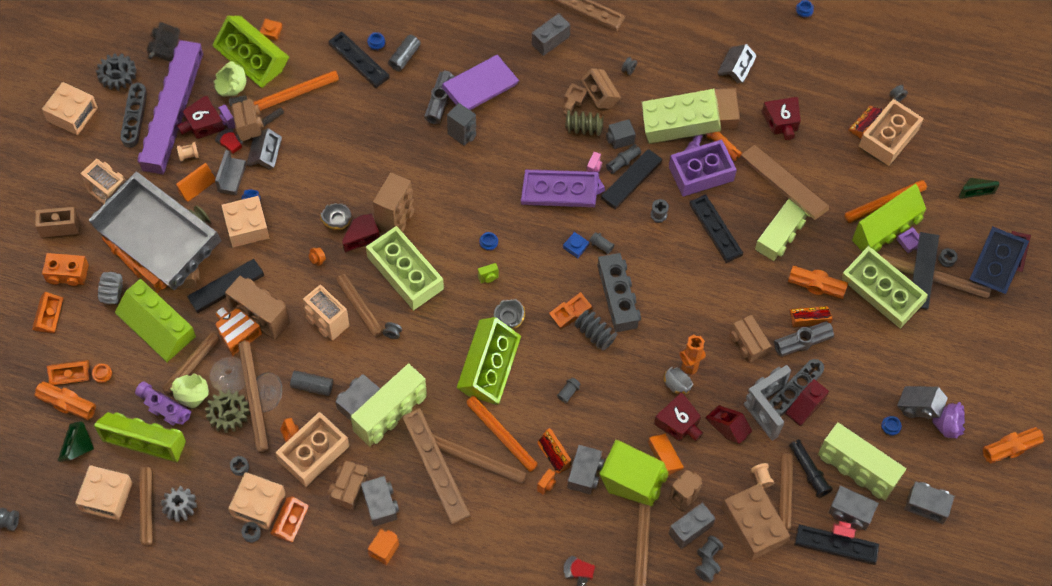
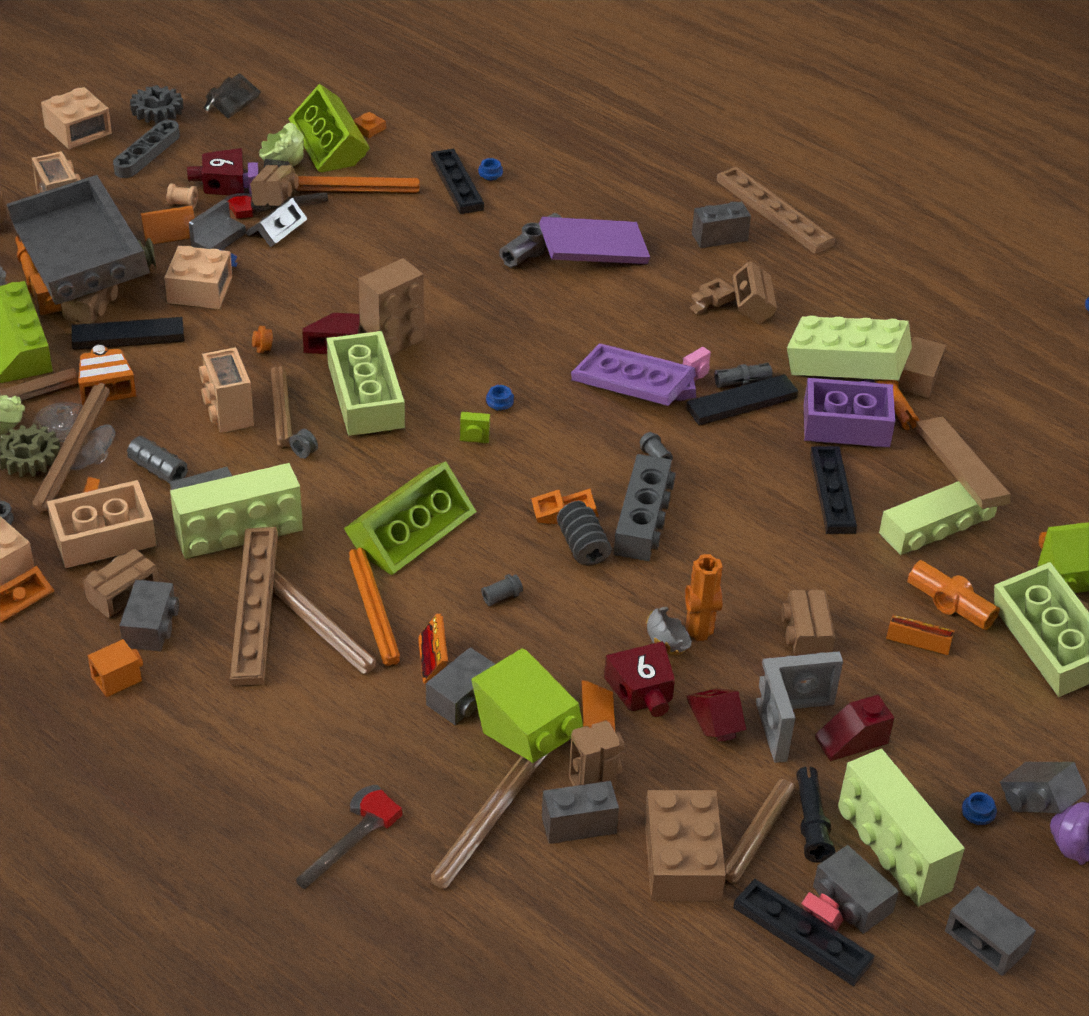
camera: 25 degrees right, 20 degrees down
(170, 107) = (224, 131): medium lavender brick -> none
(258, 305) = (147, 355): medium nougat brick -> none
(336, 216) = (314, 307): light grey hair -> none
(404, 52) = (517, 188): dark grey axle -> none
(461, 124) = (541, 267): dark grey brick -> none
(510, 313) = (476, 476): light grey hair -> none
(547, 482) = (397, 679): orange plate -> none
(576, 245) = (618, 442): blue plate -> none
(584, 123) = (709, 322): olive piece -> none
(621, 134) = (754, 346): dark grey brick -> none
(629, 66) = (810, 286): dark grey bush -> none
(659, 210) = (760, 436): dark grey bush -> none
(707, 569) = (570, 878): dark grey wheel -> none
(710, 548) = (591, 854): dark grey bush -> none
(737, 62) = (970, 329): flat silver panel -> none
(762, 475) = (731, 787): light nougat bush -> none
(782, 116) = (1002, 399): dark red torso -> none
(793, 342) = (893, 651): flat silver piece -> none
(793, 386) = (809, 710): dark grey beam -> none

